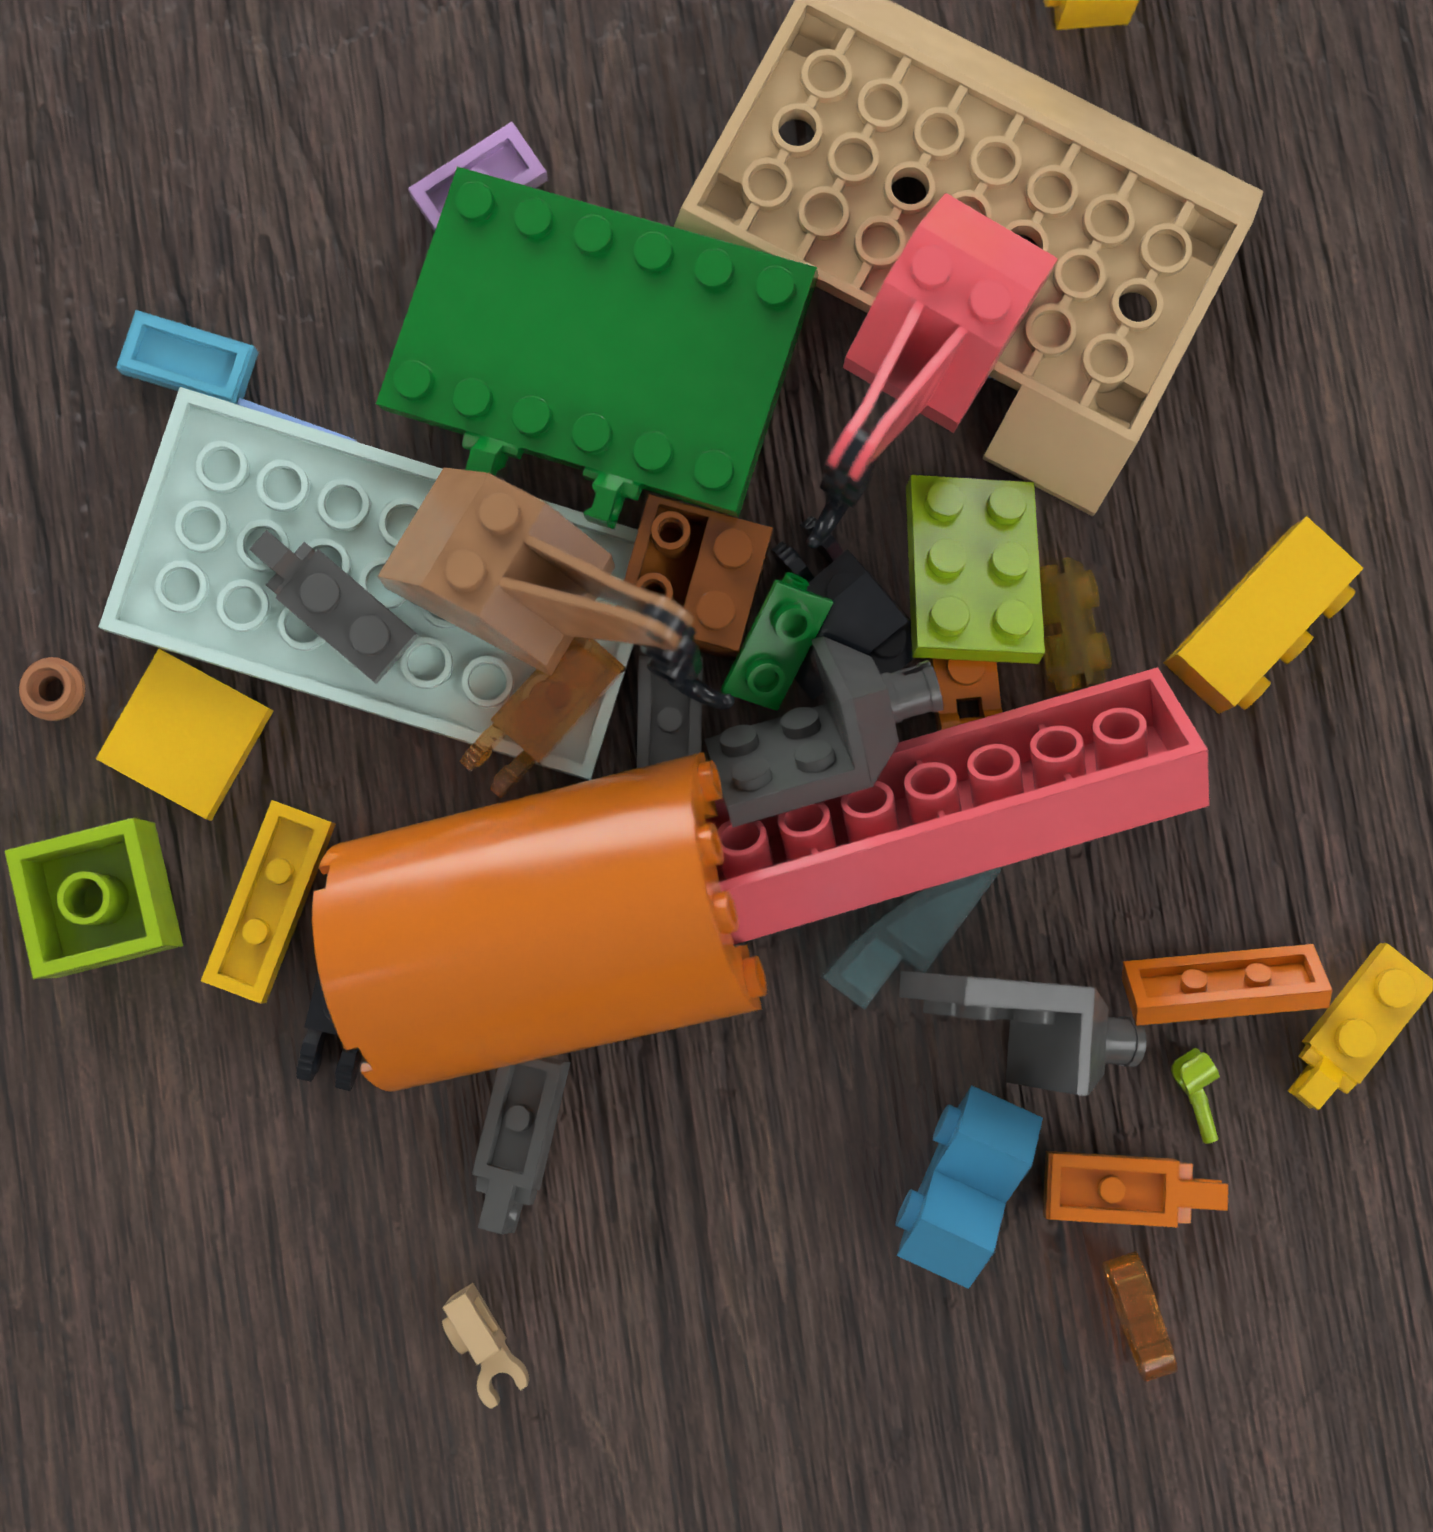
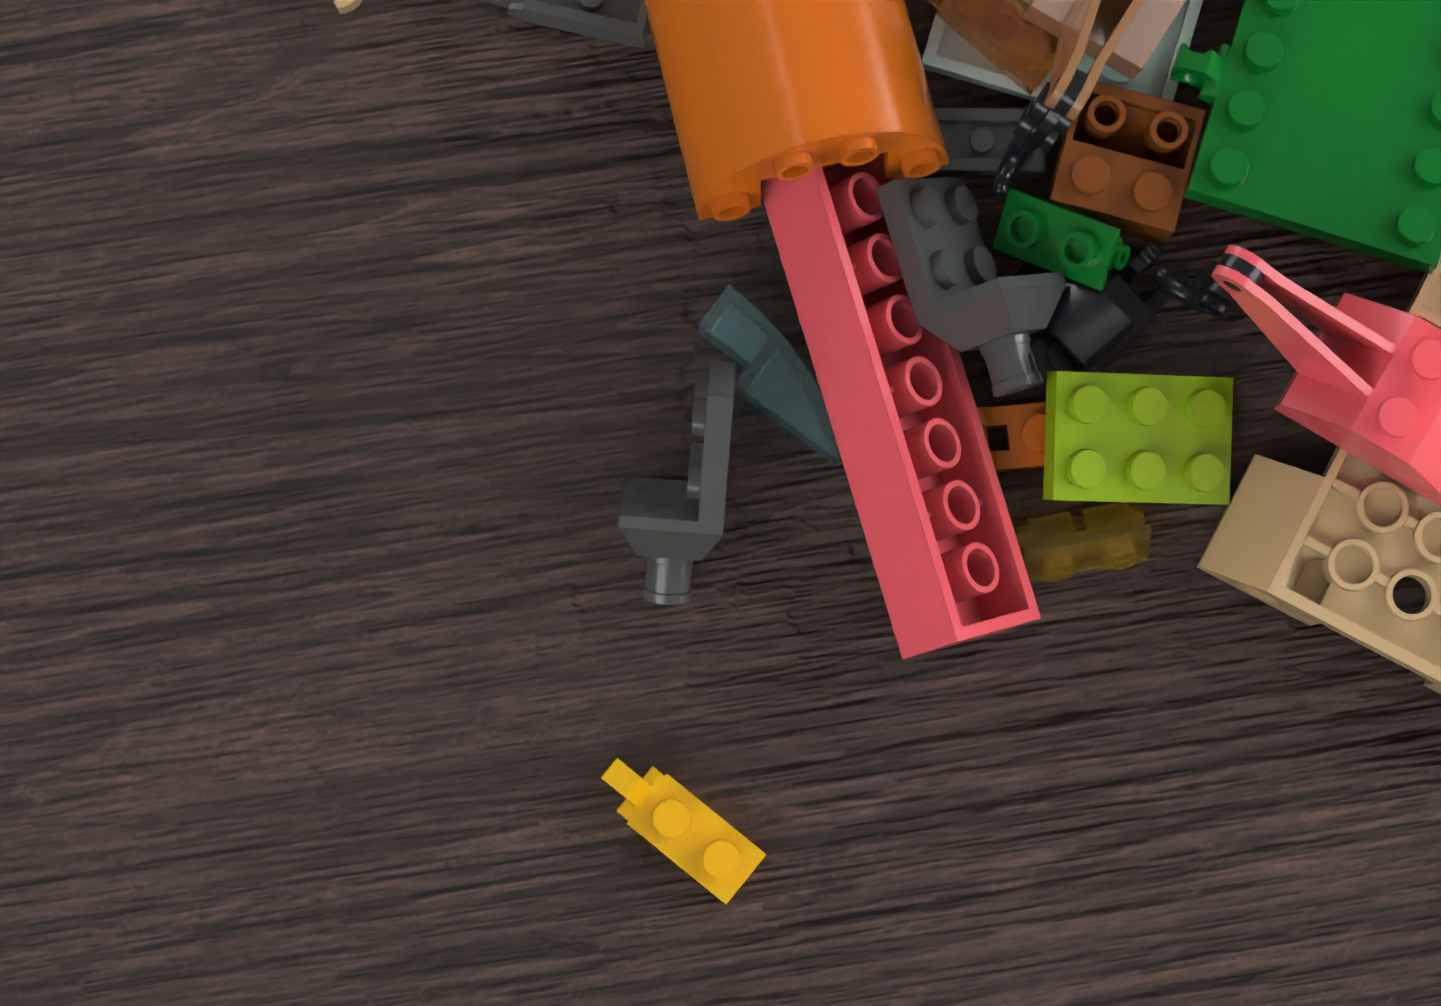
camera: 85 degrees right, 0 degrees up
(963, 1196) = (511, 424): dark azure brick -> none
(1126, 1189) = (522, 588): orange hinge -> none
(1140, 1316) = (399, 599): clear orange beam -> none
(1192, 1074) = (635, 659): lime hand -> none
(1226, 984) = (724, 688): orange plate -> none
(1265, 618) = (1094, 735): yellow brick -> none

